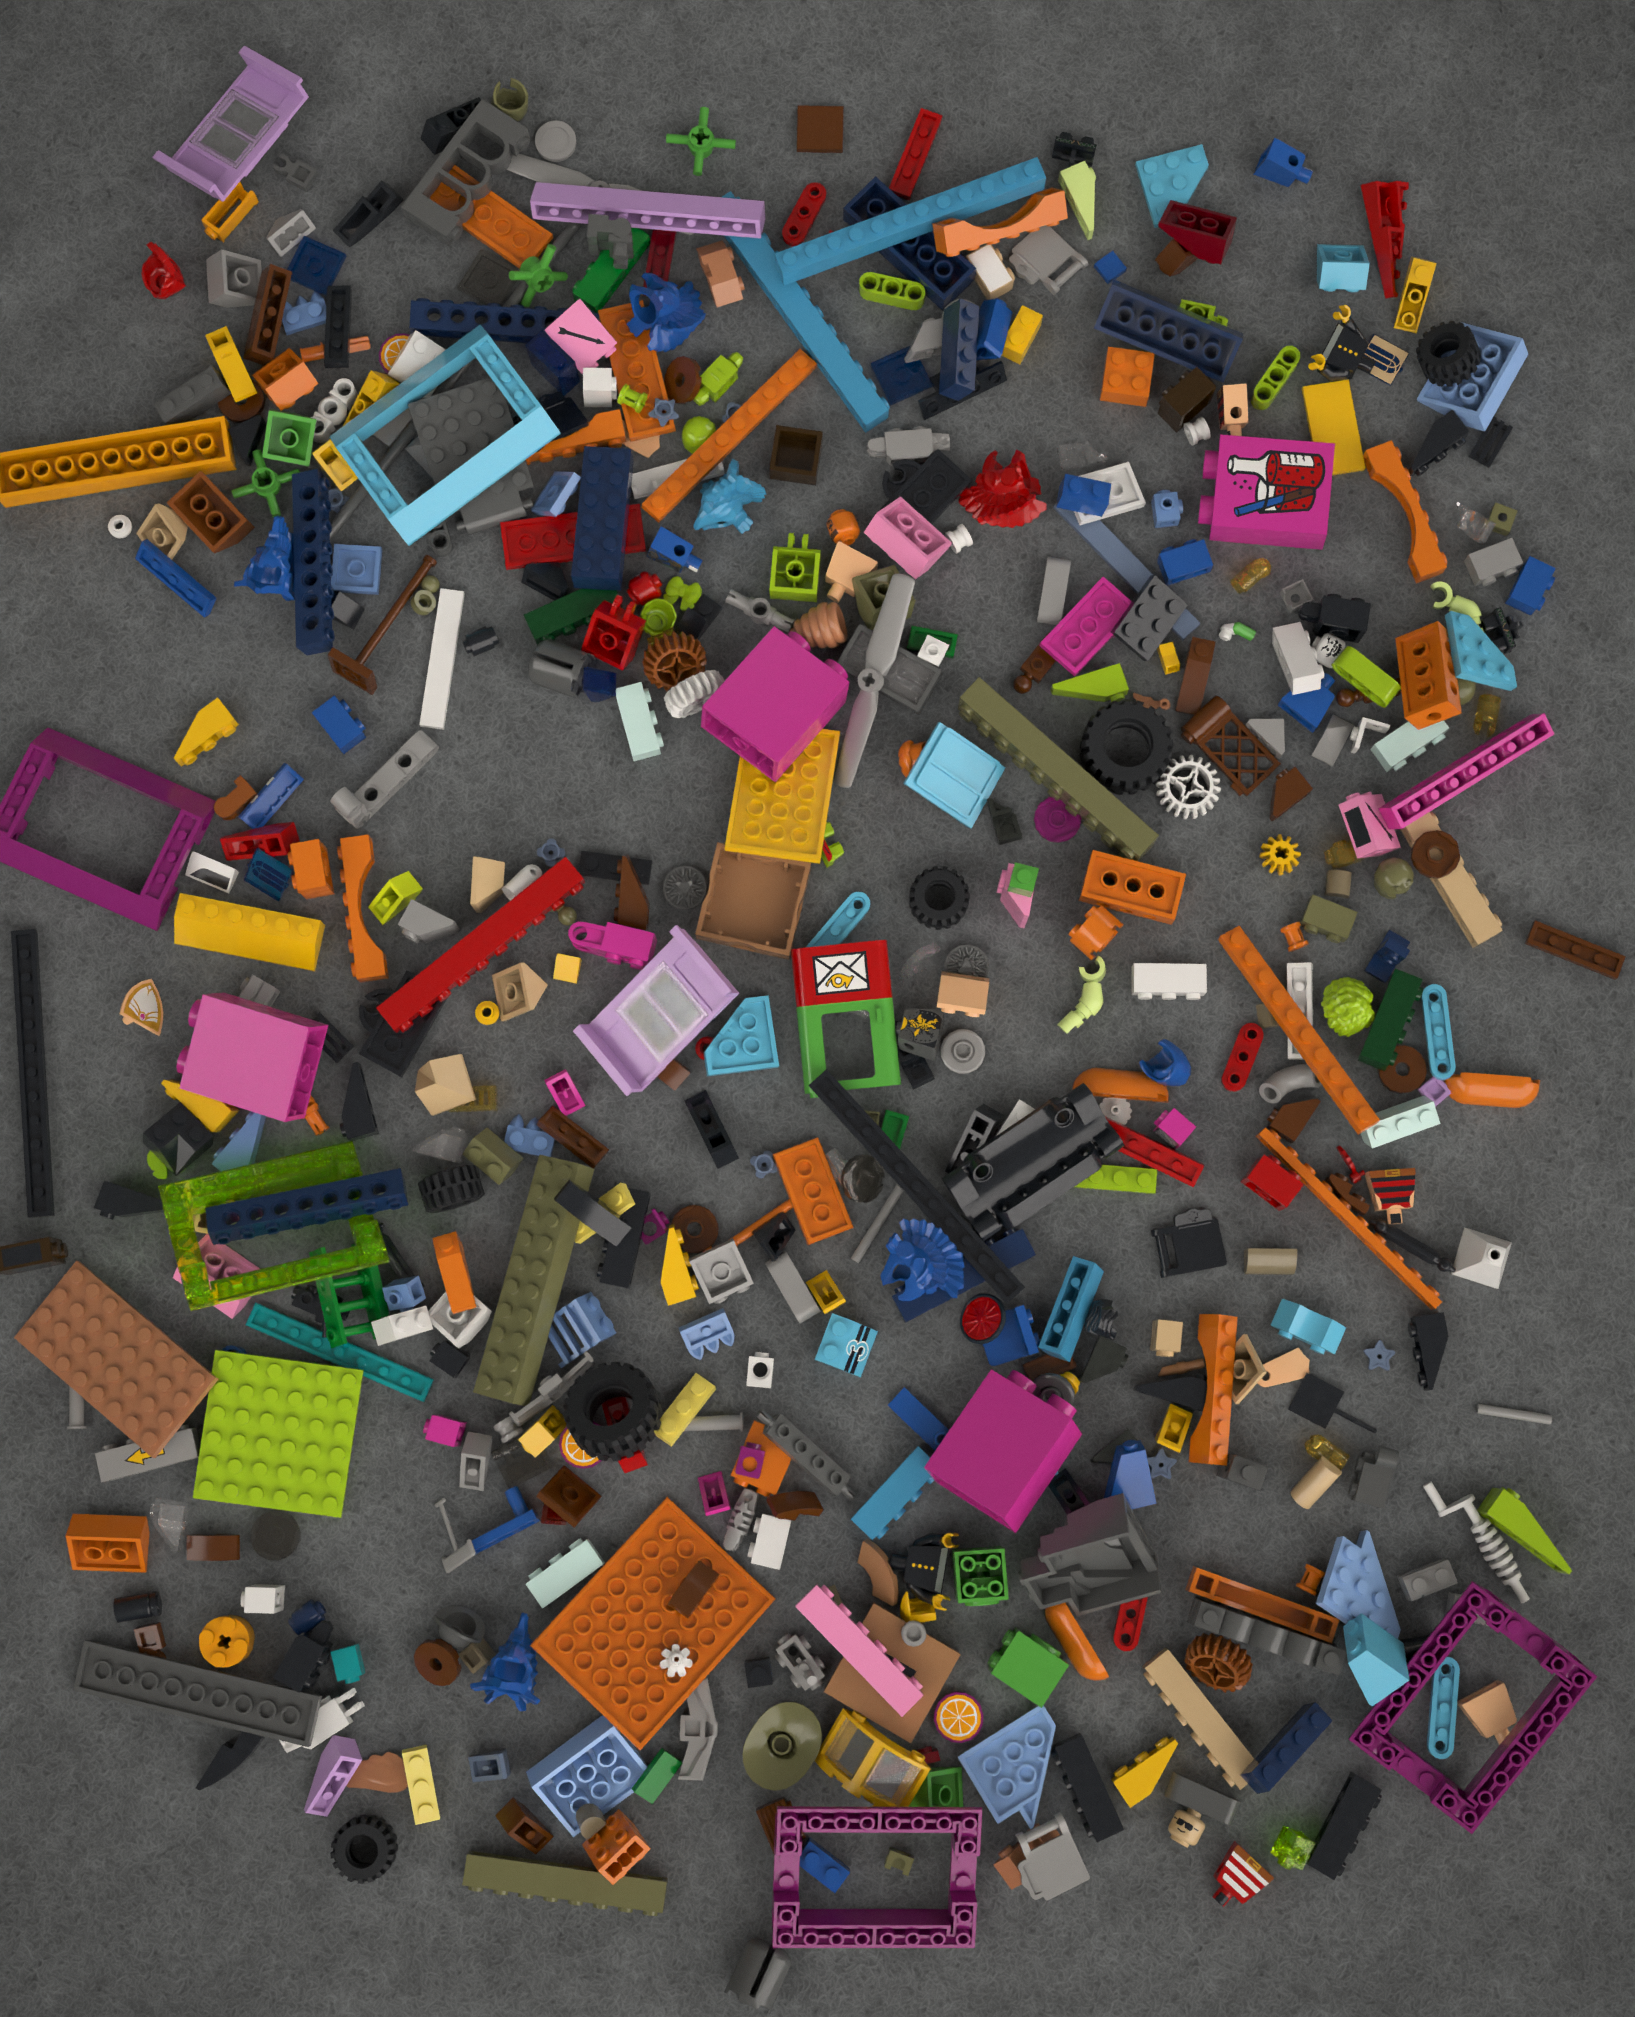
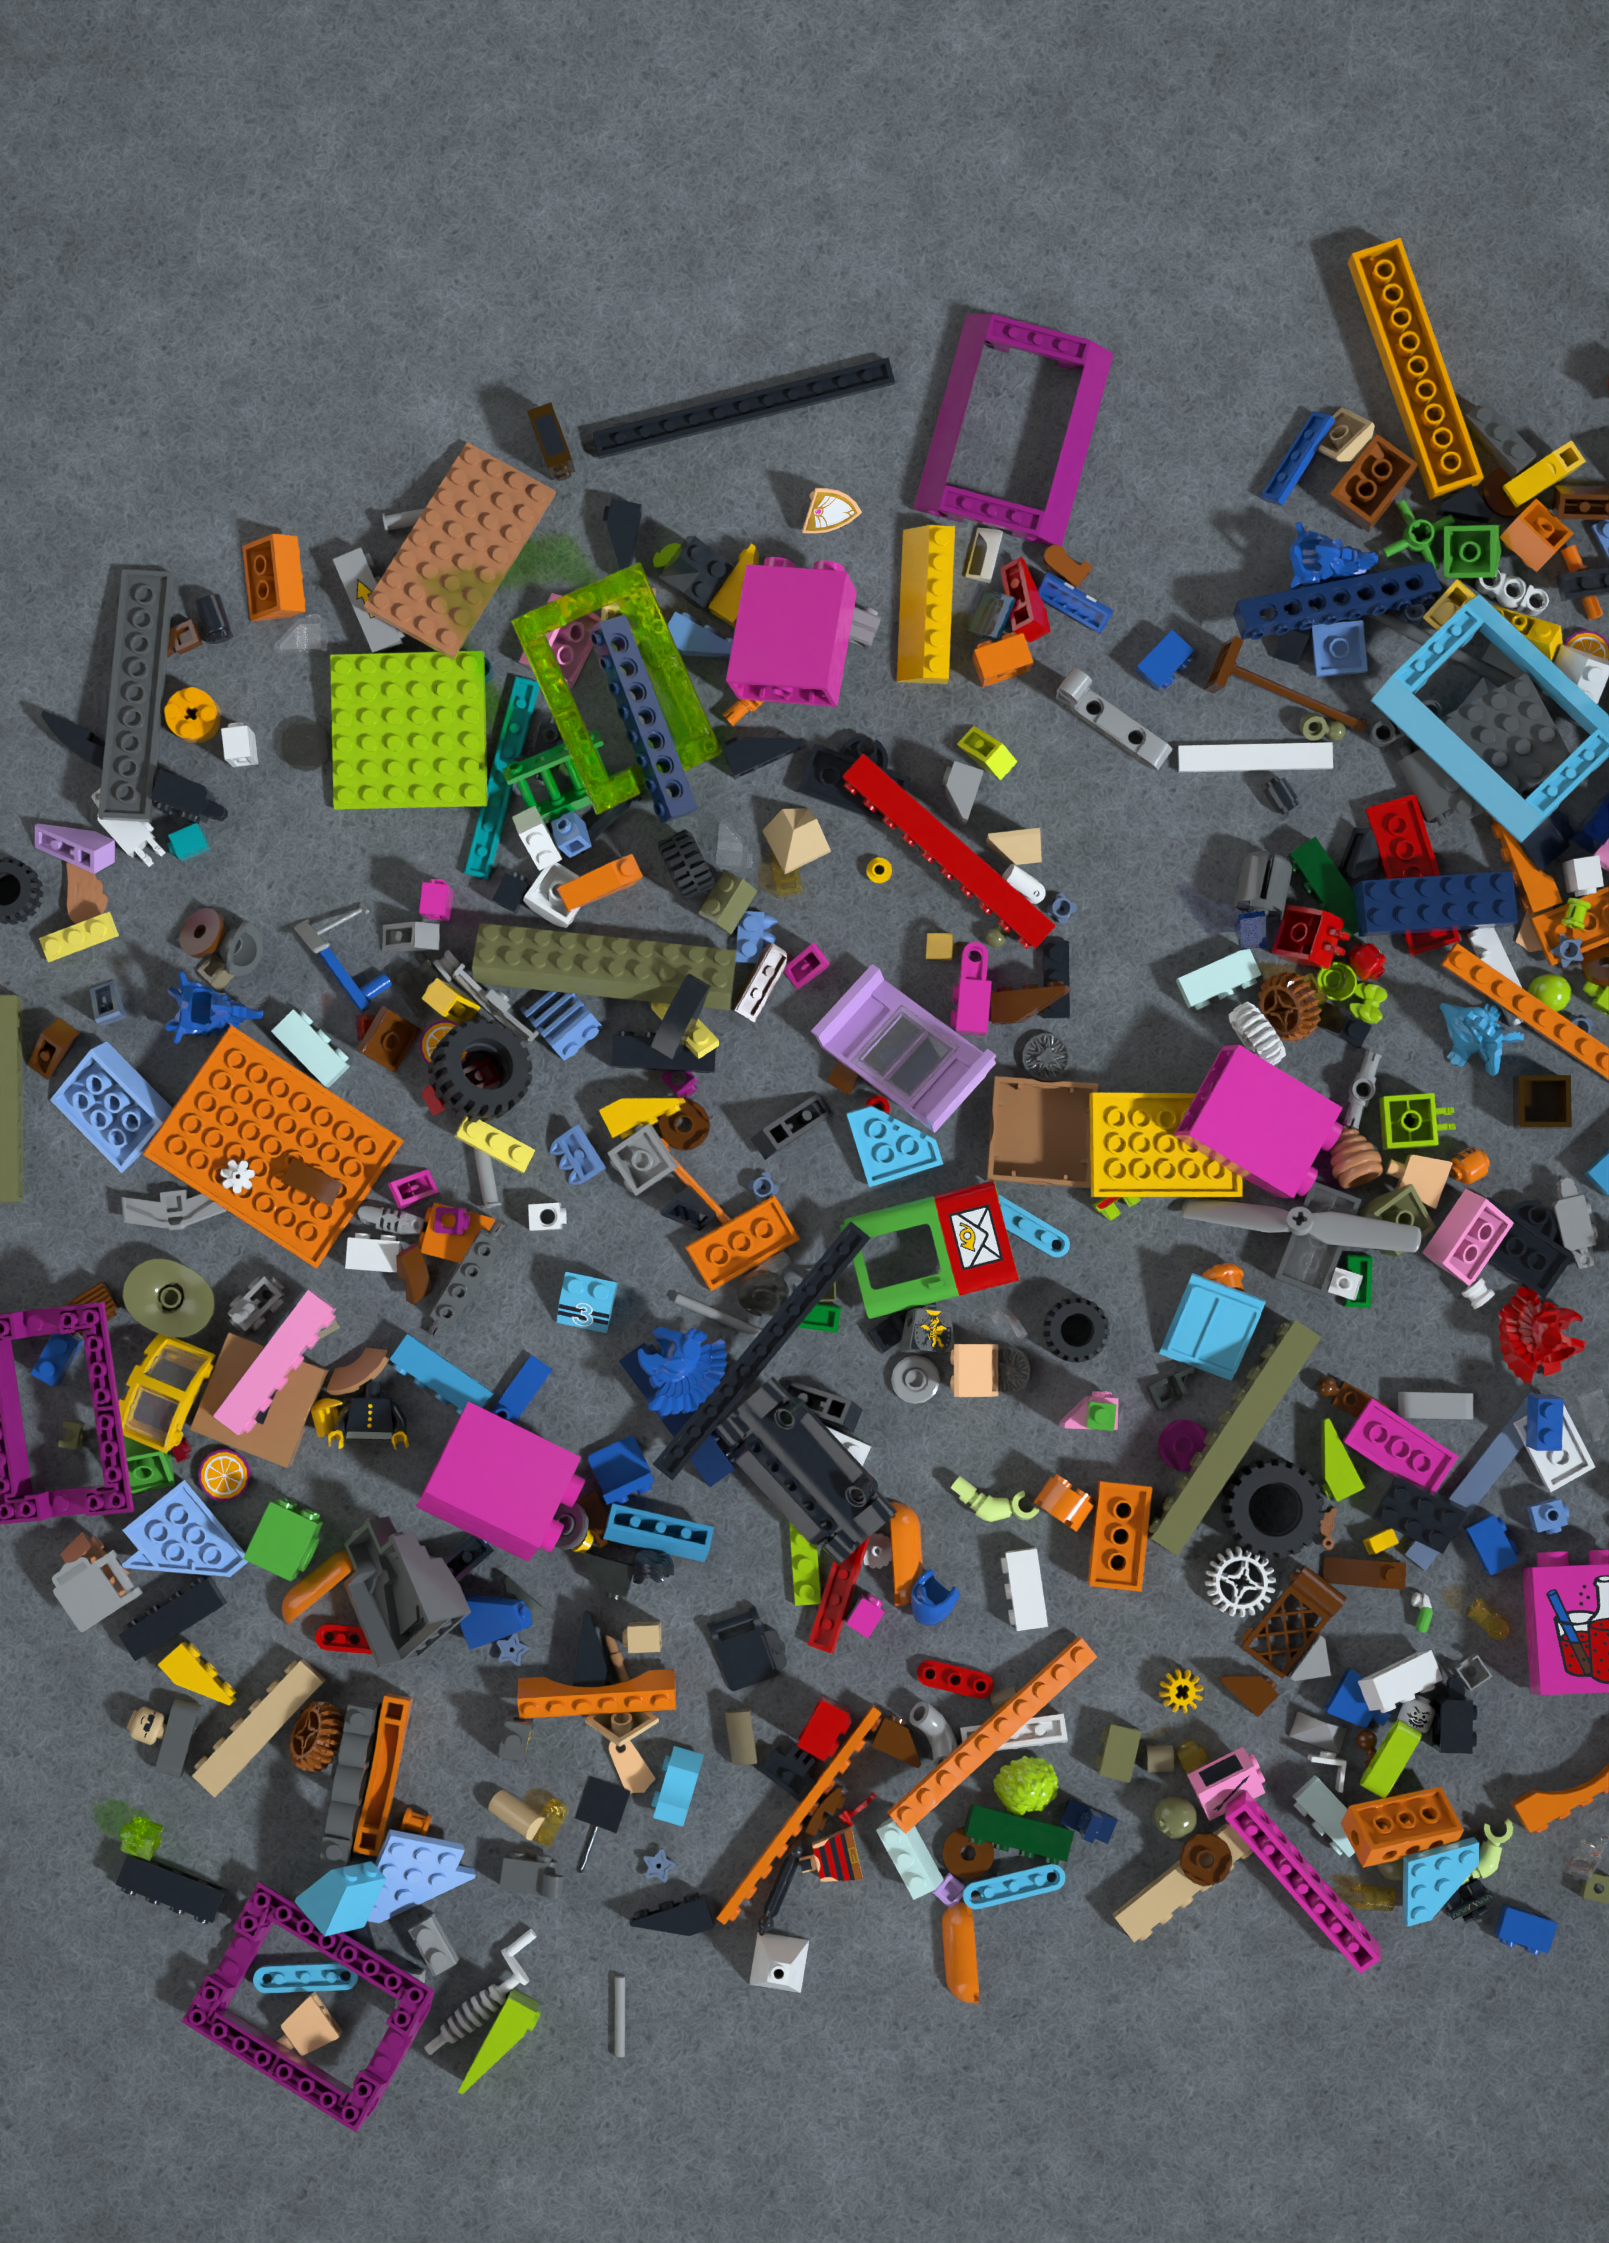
camera: 80 degrees right, 5 degrees up
(124, 531) = (1340, 393): white plate -> none
(207, 728) = (1139, 522): yellow slope -> none
(213, 1547) = (284, 684): reddish brown slope -> none
(307, 1617) = (228, 792): dark blue brick -> none
(342, 1052) = (814, 726): black tile -> none
(357, 861) = (1021, 706): orange arch -> none
(517, 990) = (906, 898): tan slope -> none
(555, 494) = (1455, 849): medium blue plate -> none
(590, 1820) = (68, 1114): dark tan brick -> none
(616, 1847) = (44, 1144): orange brick -> none
(657, 1775) = (121, 1175): green tile -> none
(664, 549) = (1411, 974): blue torso -> none
(758, 1672) = (239, 1262): black brick -> none
(792, 1287) = (637, 1237): light grey beam -> none
(825, 1292) = (638, 1272): yellow slope -> none
(913, 1633) = (300, 1416): light grey tile -> none
(980, 1575) = (369, 1476): bright green brick -> none
(982, 1318) = (635, 1441): red wheel -> none
(1174, 1428) = (550, 1658): yellow slope -> none
(1239, 1876) = (106, 1787): torso -> none
(1286, 1748) = (240, 1818): dark blue brick -> none
(1294, 936) = (1093, 1718): orange bush -> none
(1307, 1220) = (790, 1772): none -> black hinge
(1493, 562) = (1545, 1884): light grey brick -> none
(1575, 950) = (1126, 2024): reddish brown plate -> none

